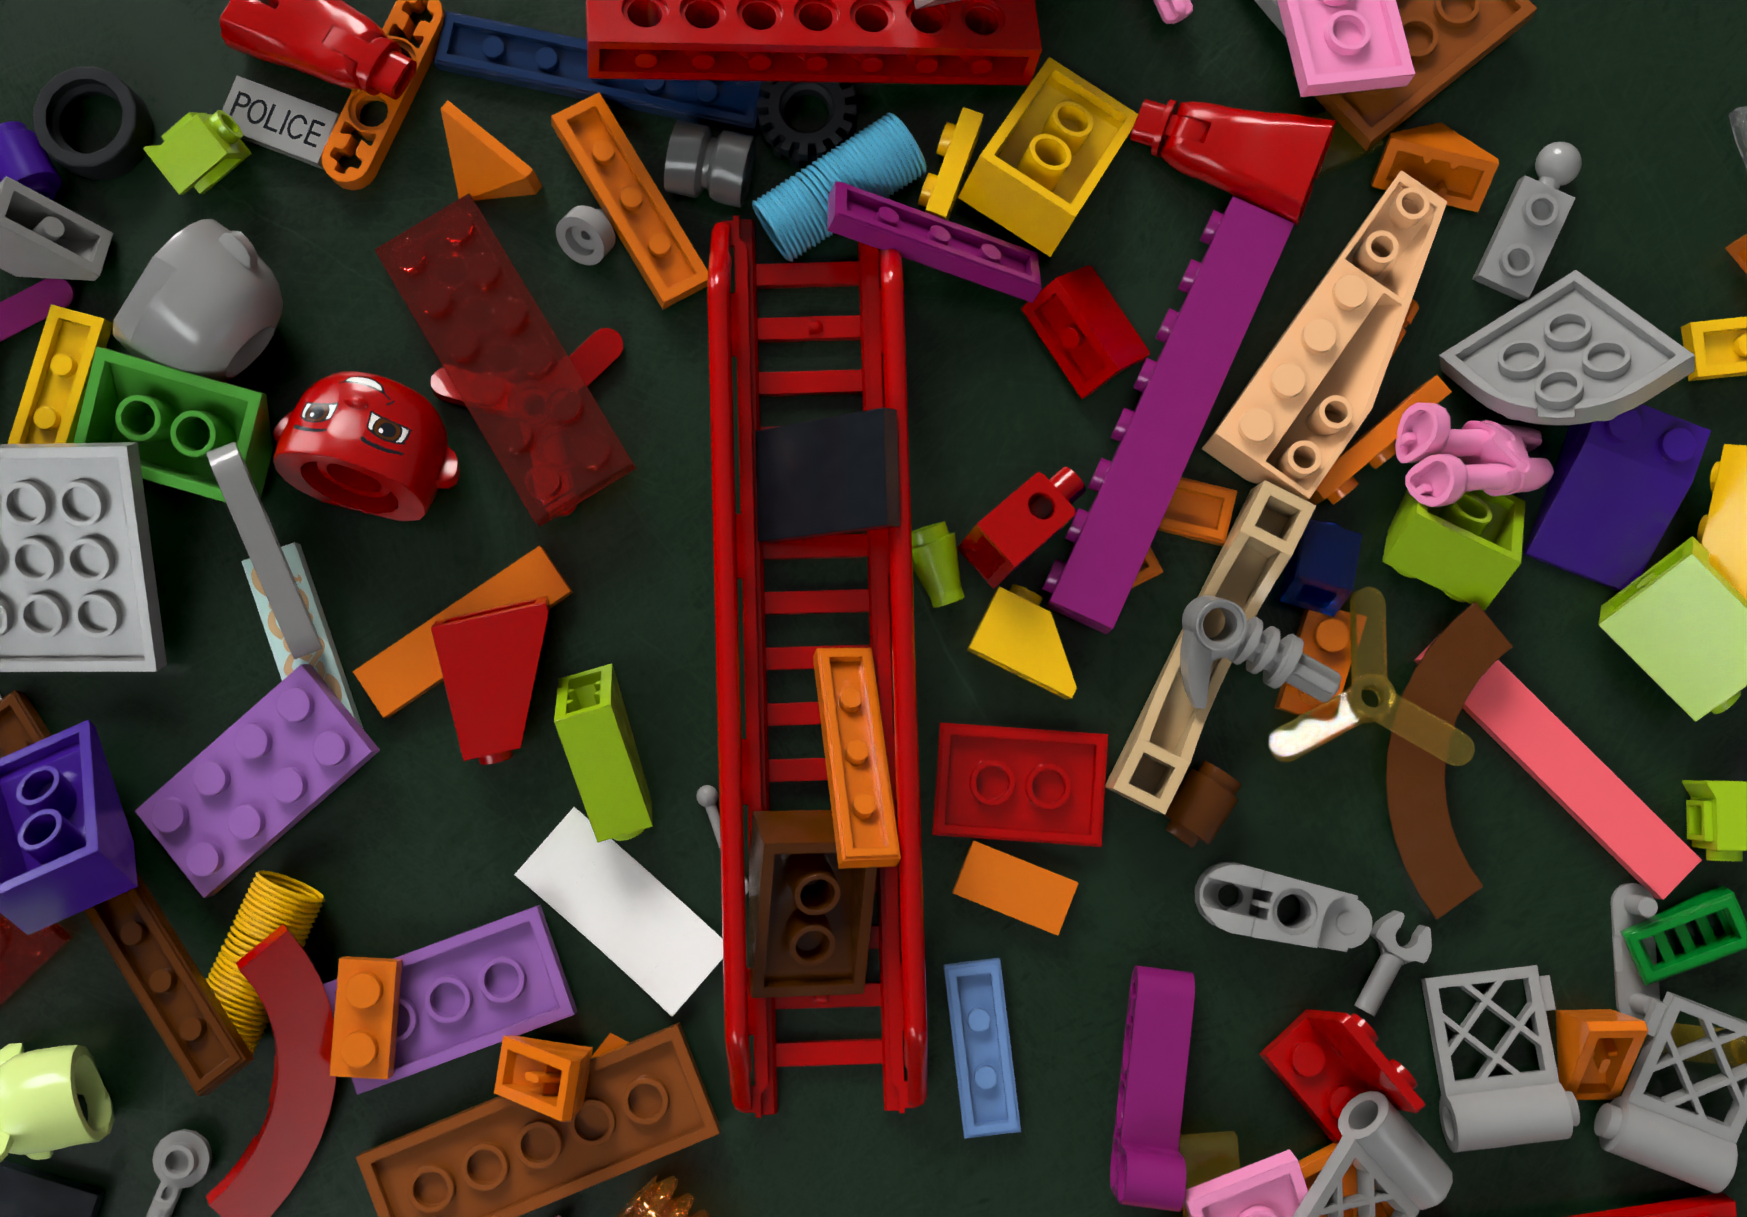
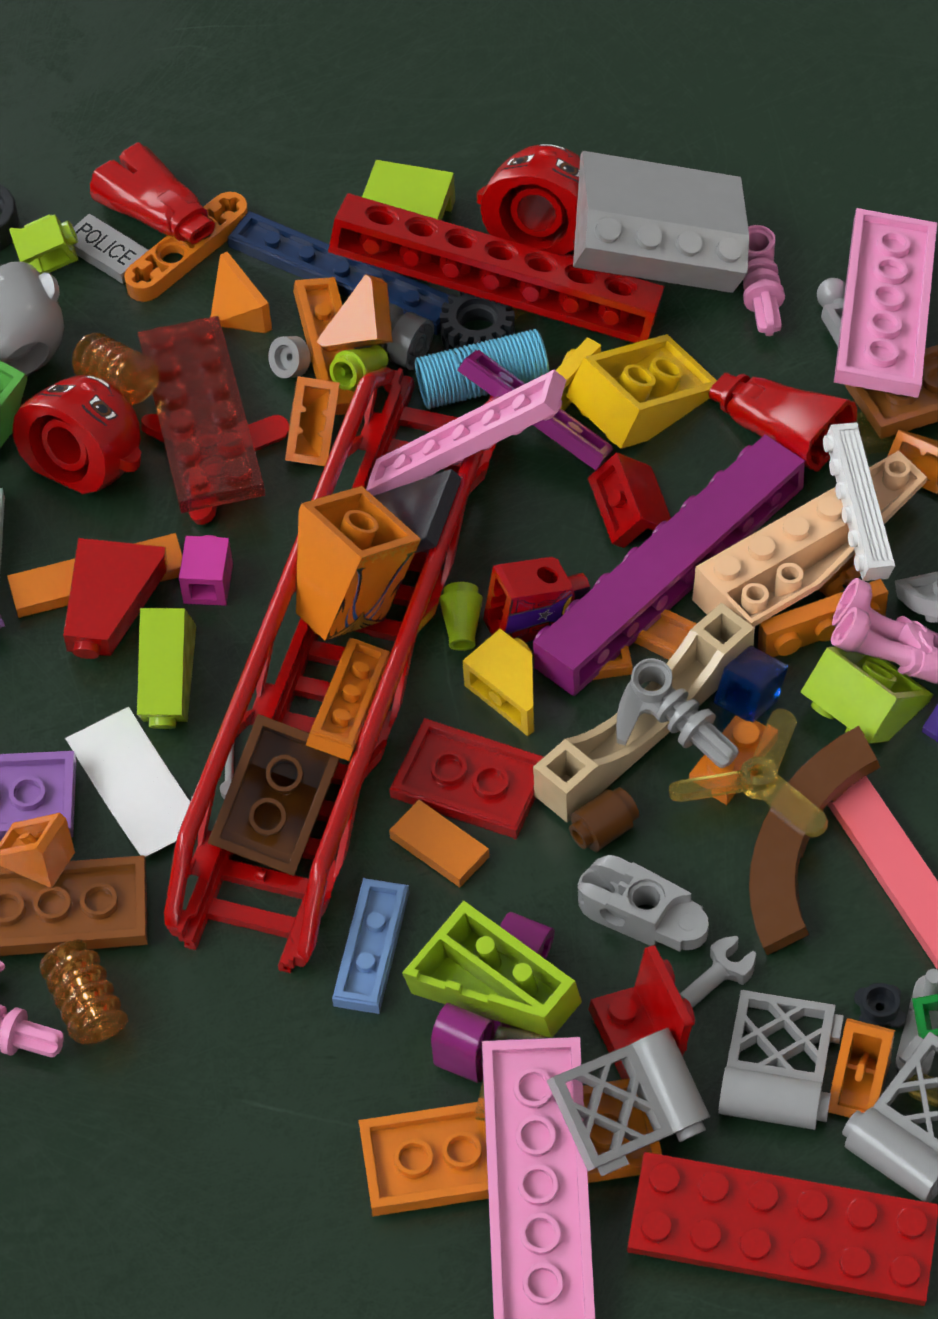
camera: 25 degrees right, 30 degrees down
(369, 328) = (117, 364): none -> clear orange piece
(598, 590) = (206, 570): none -> dark pink brick
(652, 334) = (312, 421): none -> orange slope
(675, 177) = (361, 319): none -> slope
(685, 239) = (353, 364): none -> lime cone
(792, 569) = (349, 561): none -> orange slope
(894, 349) = (469, 433): none -> bright pink plate
(1169, 1103) = (492, 975): none -> lime wedge
(1391, 280) = (859, 502): none -> white piece
(1601, 959) = (883, 995): none -> black plate

